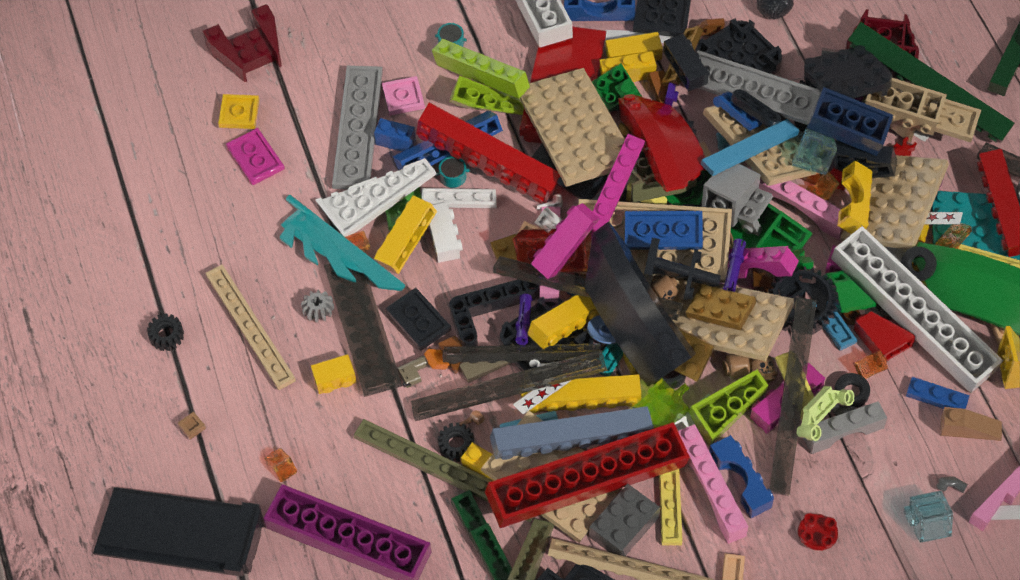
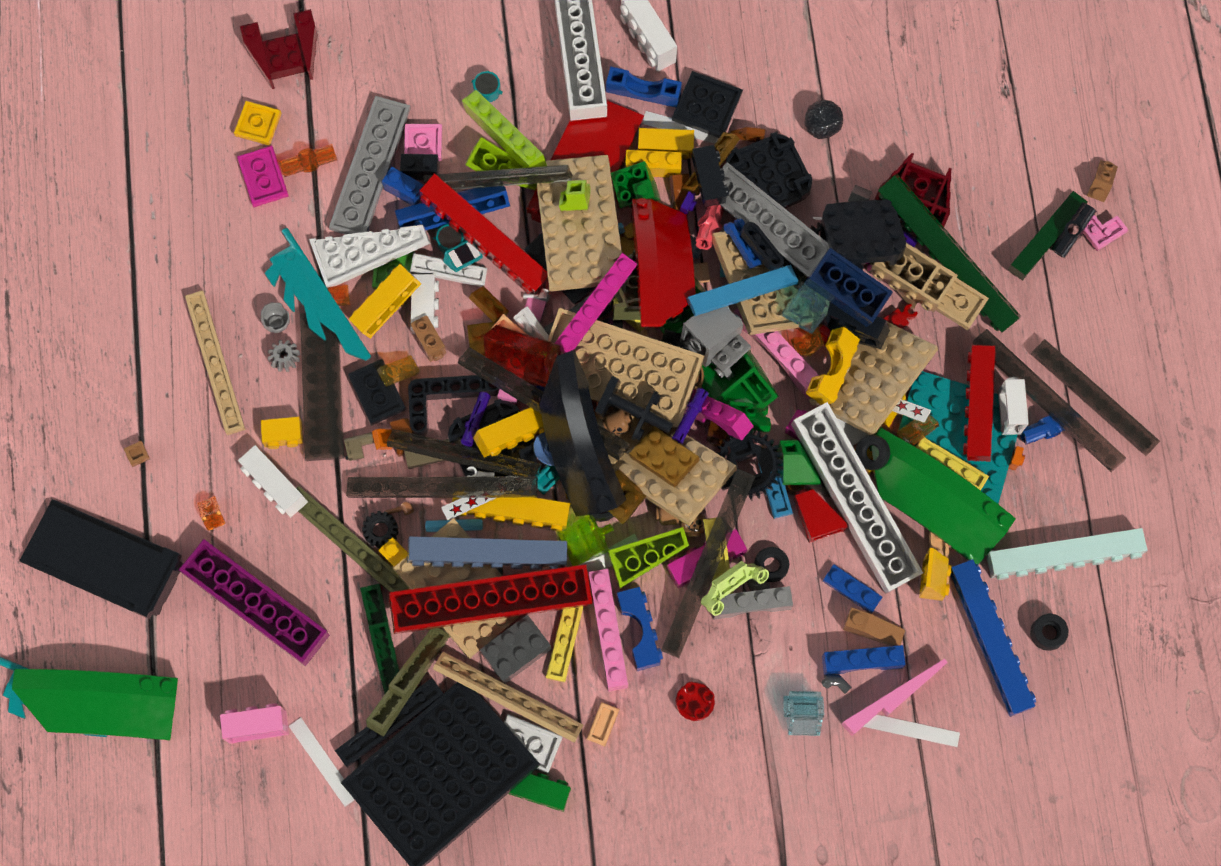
camera: 10 degrees right, 15 degrees up
(161, 323) = (125, 342): black tyre -> none
(296, 132) = (308, 160): none -> clear orange piece
(299, 273) = (274, 317): none -> light grey hair
(337, 419) = (274, 483): none -> white brick
(406, 112) = (419, 165): none -> black brick
(434, 294) = (398, 370): none -> clear yellow plate
(458, 259) = (429, 338): none -> medium nougat bracket
(468, 181) = (462, 256): none -> slope
(503, 99) = (505, 177): none -> clear smoke tile
(505, 219) = (488, 304): none -> pearl gold plate
(565, 240) = (528, 357): dark pink brick -> none
(566, 101) = (576, 196): none -> lime brick
(674, 228) = (631, 362): blue plate -> none
(696, 107) = (708, 225): none -> coral piece
(871, 364) = (796, 543): clear orange bracket -> none
(954, 459) = (862, 659): none -> blue arch

